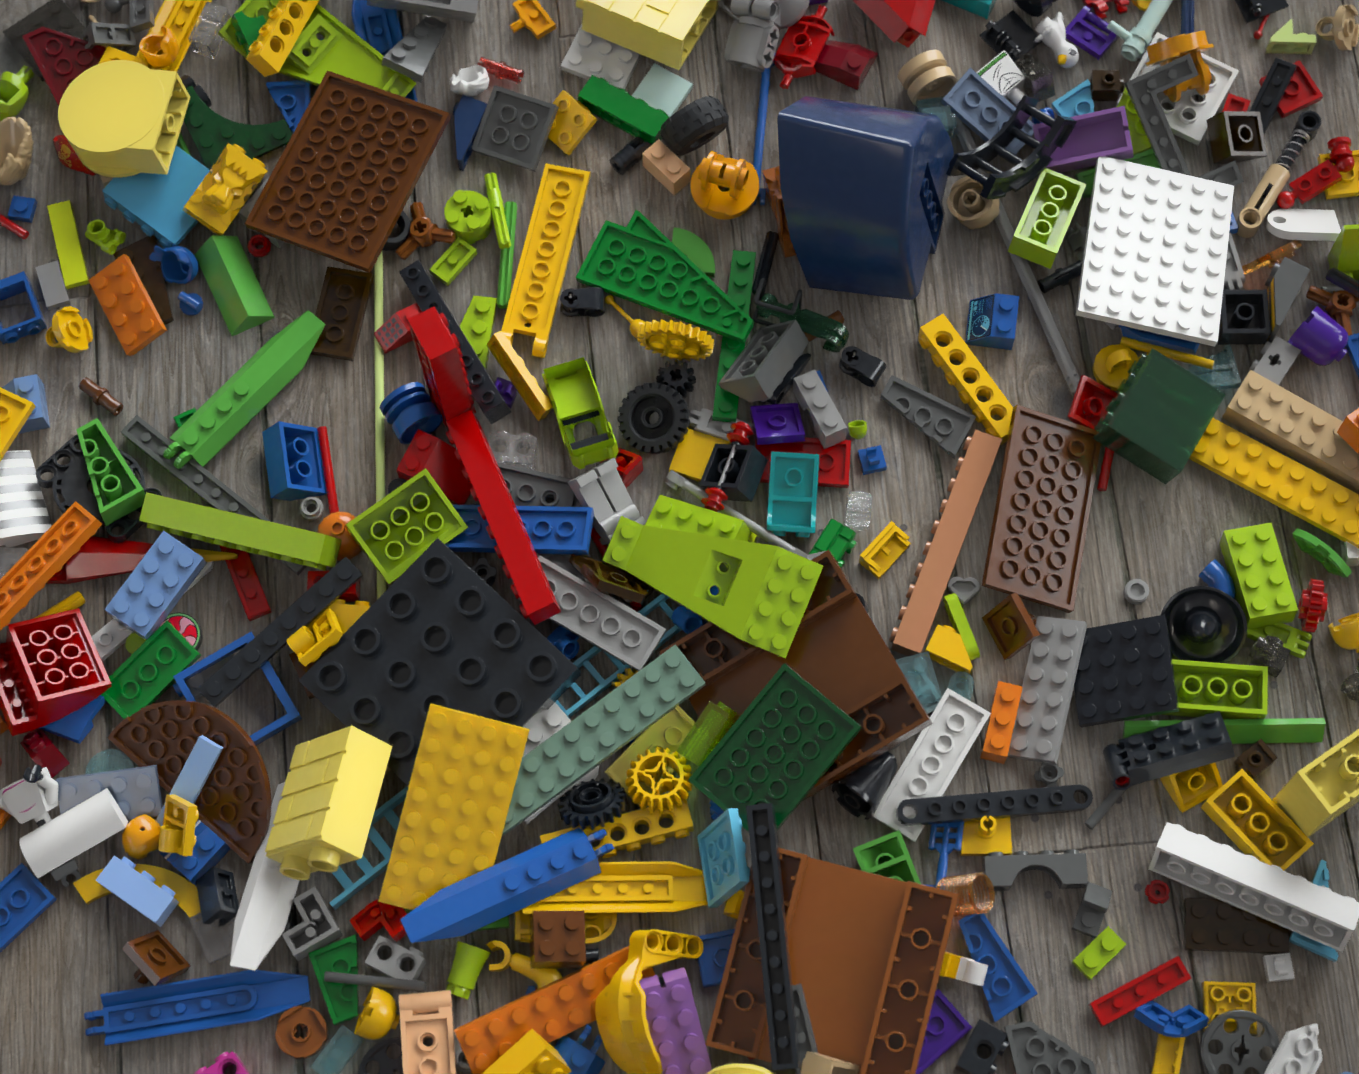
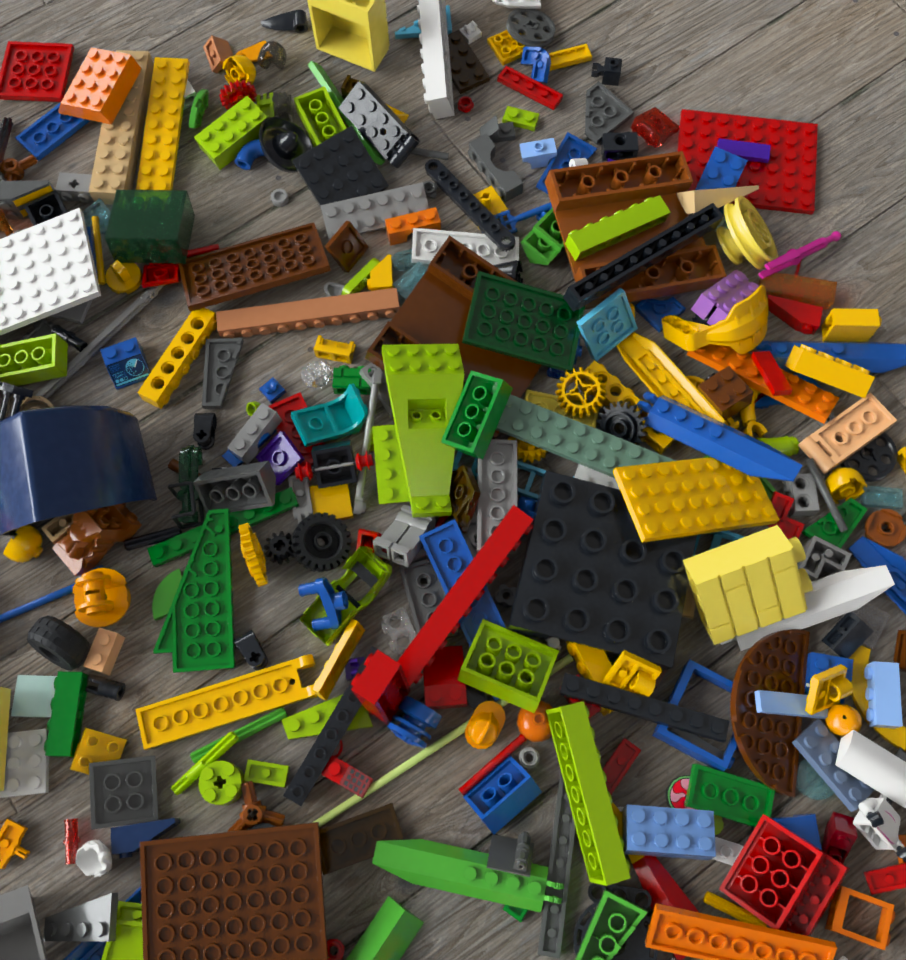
camera: 120 degrees left, 0 degrees up
(234, 437) = (511, 854): none -> dark grey hinge
(367, 482) = (485, 725): none -> light orange piece
(549, 1010) = (771, 373): none -> red tile
(575, 391) = (332, 603): none -> blue connector
(634, 324) = (251, 600): yellow hinge -> none
(685, 630) = (477, 414): none -> green slope
(707, 732) = (534, 375): clear neon green brick -> none
(843, 946) = (617, 227): none -> lime brick
(969, 878) = (538, 189): clear orange piece -> none
(1025, 933) = (538, 152): none -> light blue brick
(1256, 822) = (395, 69): yellow brick -> none
(1320, 338) = (44, 164): dark purple cylinder -> none

